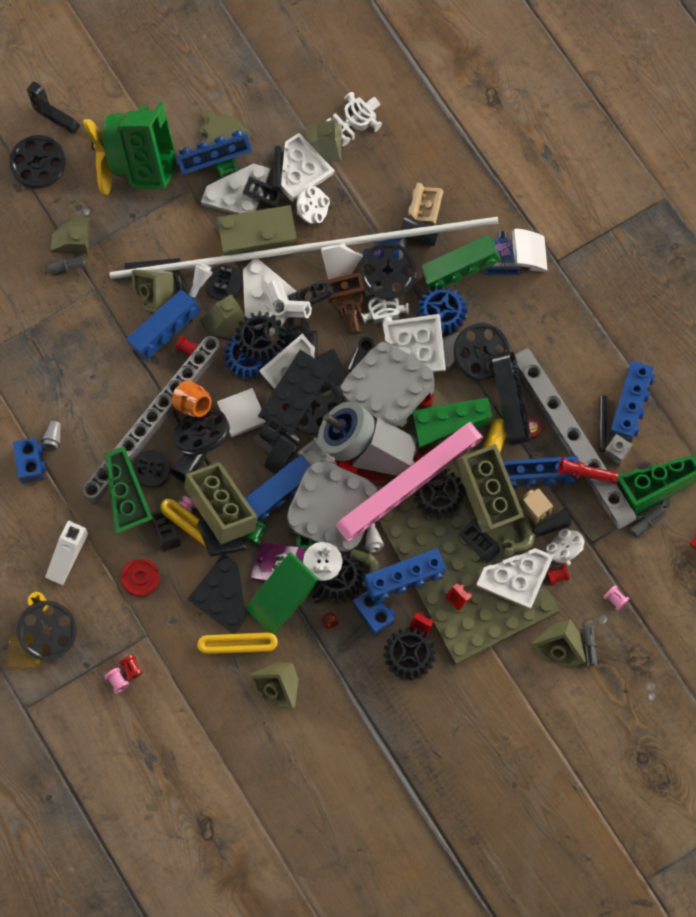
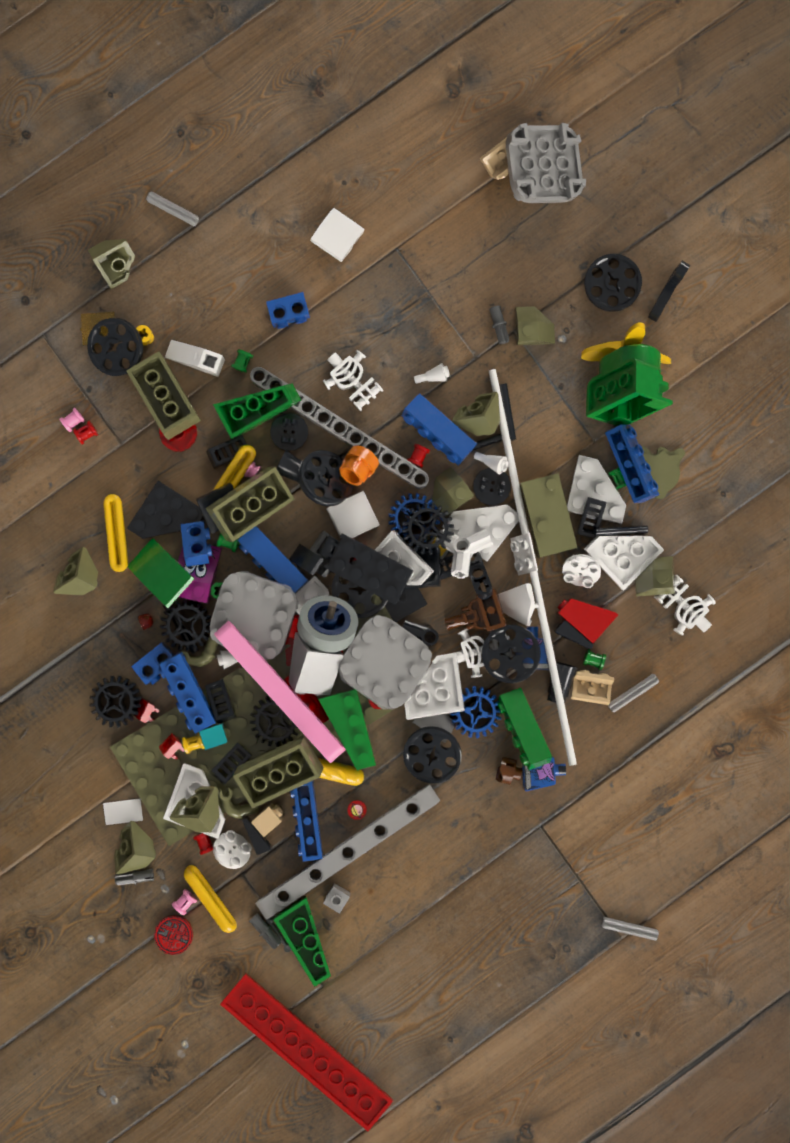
camera: 80 degrees right, 15 degrees up
(51, 438) = (315, 330): light grey cone -> none
(75, 508) = (242, 361): none -> green bush
(89, 416) = (340, 365): none -> white piece
(102, 584) = (163, 395): none -> olive brick
(108, 324) = (437, 373): none -> white cone
(256, 565) = (198, 543): none -> blue brick
(292, 254) = (524, 554): none -> white hinge
(323, 551) = (185, 611): white plate -> none
(359, 205) = (586, 618): none -> red slope
(372, 219) = (569, 632): none -> black slope
(399, 201) = (594, 659): none -> green bush
(421, 538) = (225, 717): none -> black slope
(433, 169) = (633, 693): none -> light grey axle
(451, 553) = (213, 736): none -> teal panel
(453, 569) = (192, 743): none -> yellow bush
(500, 282) = (508, 771): none -> reddish brown piece
(511, 398) = (383, 788): black beam -> none
(522, 656) = (123, 811): none -> white sticker
(523, 568) = (198, 811): none -> olive slope
(529, 250) = (547, 798): white slope -> none
(578, 469) = (304, 862): red pin -> none
(602, 423) = (366, 881): black bar -> none
(614, 574) = (209, 899): none -> yellow piece
(631, 401) = (390, 910): blue brick -> none
(649, 612) = (173, 935): none -> tile
(657, 187) = (629, 928): none -> light grey axle

